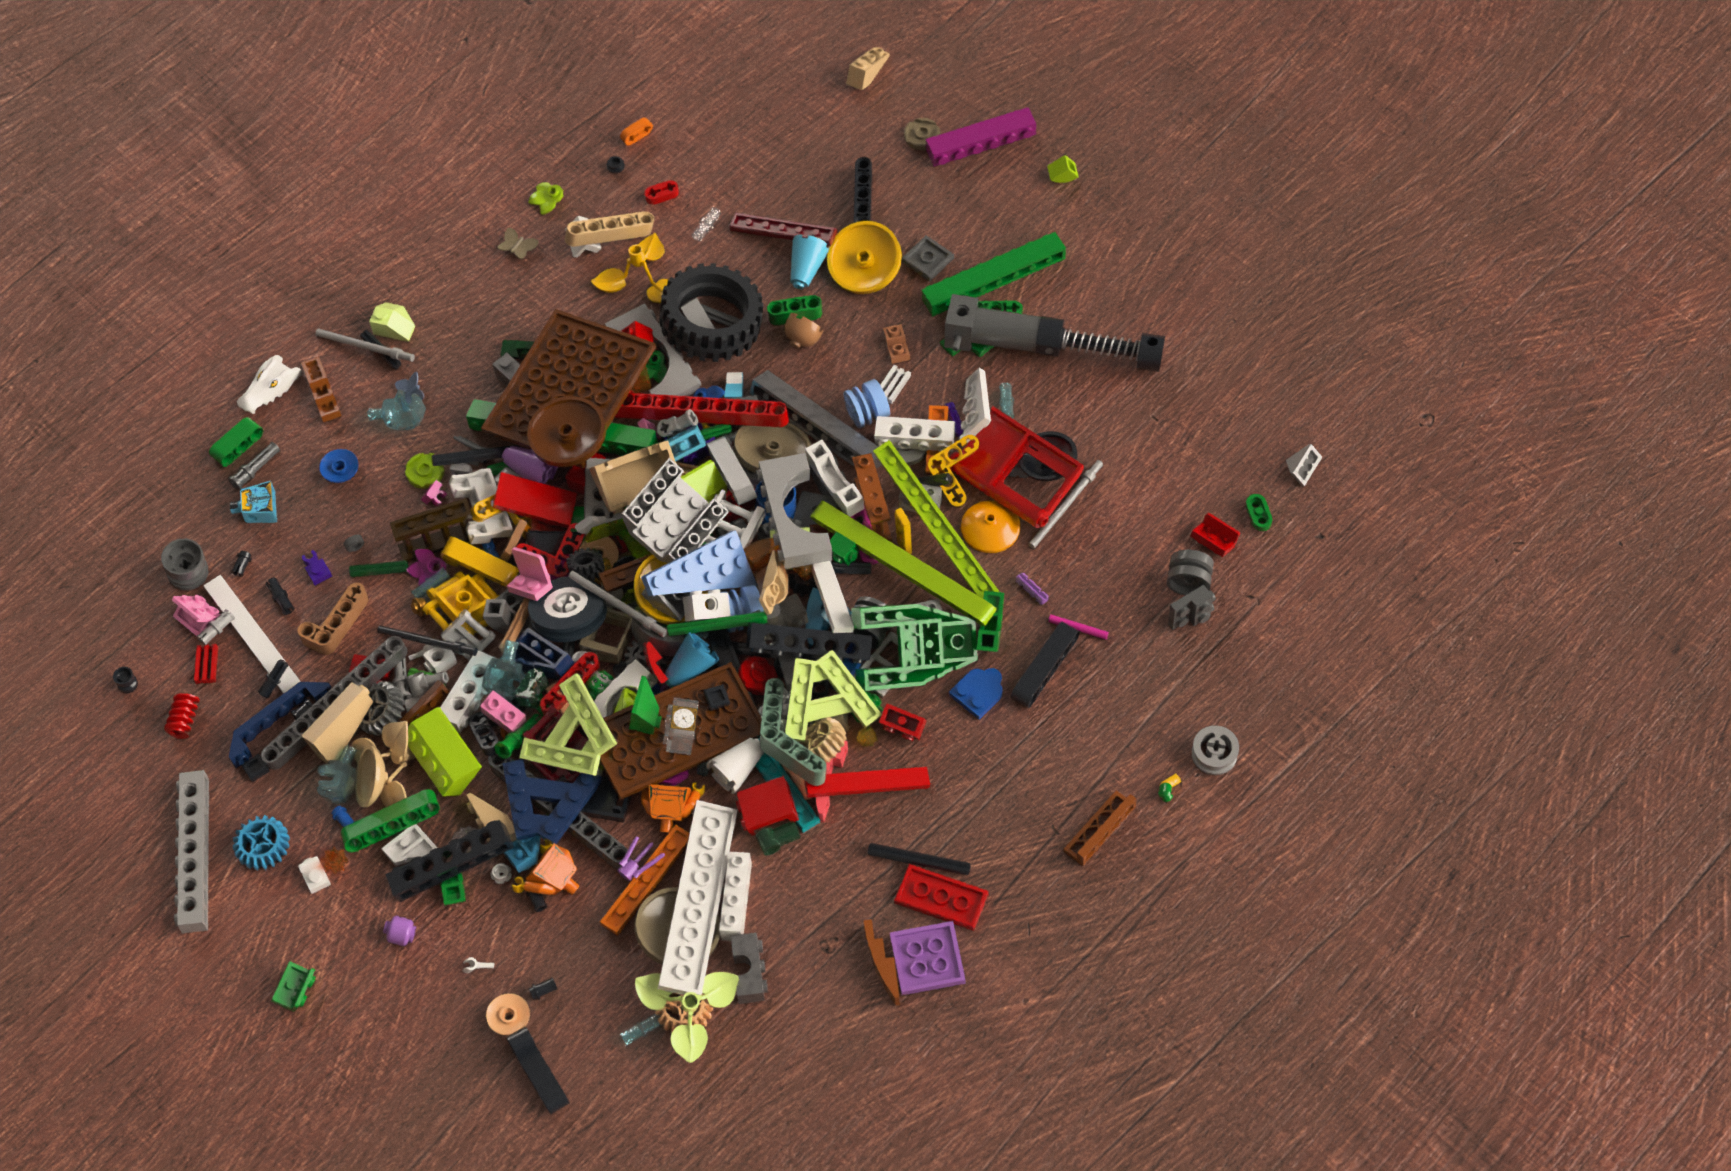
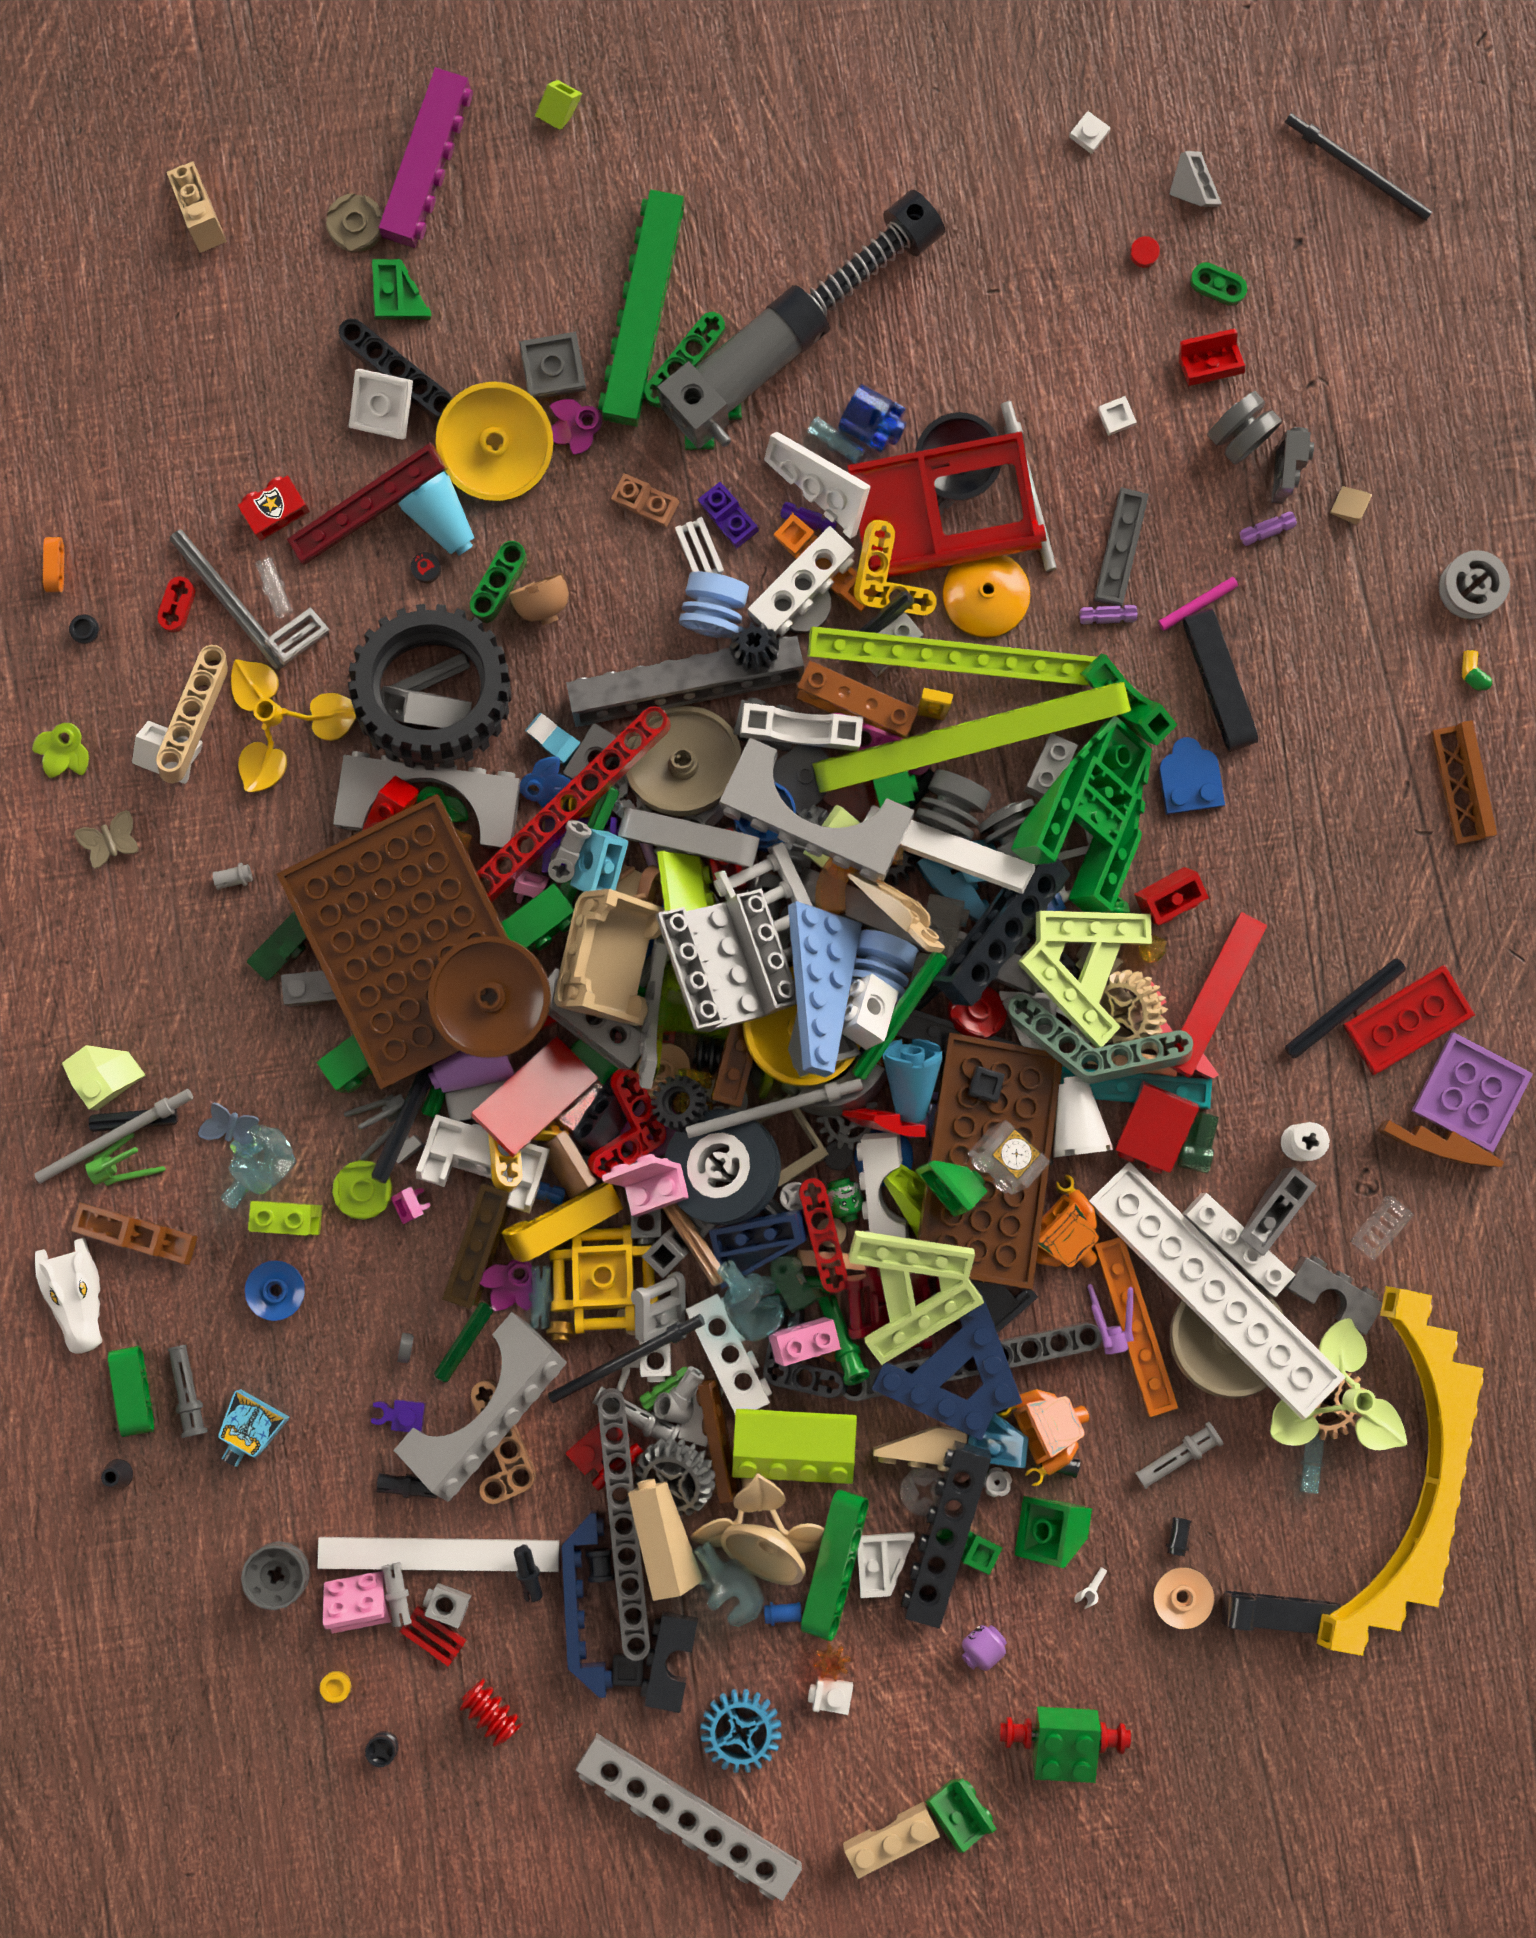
camera: 60 degrees left, 25 degrees up
(144, 638) = (335, 1687): none -> yellow tile
(186, 464) = (123, 1473): none -> black cone
(228, 663) = (460, 1604): none -> light grey brick
(241, 563) = (320, 1500): black pin -> none
(242, 954) = (877, 1848): none -> tan arch
(258, 785) = (663, 1688): none -> black arch
(307, 594) = (526, 1371): none -> light grey arch
(345, 353) = (104, 1167): none -> bright green plant
(376, 1009) = (1065, 1742): none -> green brick
(381, 439) = (285, 1218): none -> lime panel
(496, 918) = (1051, 1530): none -> green slope
(545, 307) = (233, 876): none -> light grey pin
(598, 958) = (1189, 1443): none -> light grey pin
(623, 1126) = (1420, 1561): none -> yellow arch
(683, 211) = (224, 595): none -> dark grey axle
(689, 250) = (278, 650): none -> light grey tile
(746, 195) = (273, 507): none -> red brick
(770, 896) = (1276, 1209): none -> flat silver slope
(774, 278) = (425, 567): none -> black tile
(809, 975) = (1381, 1211): none -> clear slope
(821, 883) = (1313, 1134): none -> white piece
(838, 200) = (380, 404): none -> white tile
(858, 431) = (754, 647): none -> black gear
(858, 582) = (954, 802): none -> dark grey wheel
(902, 171) = (395, 293): none -> green wing
(904, 289) = (570, 426): none -> magenta plate
(922, 384) = (728, 515): none -> dark purple slope
(1031, 405) = (873, 419): none -> clear blue gear
(1074, 569) = (1121, 547): none -> dark grey tile
(1142, 516) = (1116, 416): none -> white plate
(1151, 630) = (1268, 528): none -> medium lavender axle
(1202, 661) = (1351, 504): none -> tan slope
(1242, 468) = (1144, 251): none -> red tile
(1280, 400) = (1089, 132): none -> white plate
(1383, 501) = (1312, 135): none -> black bar

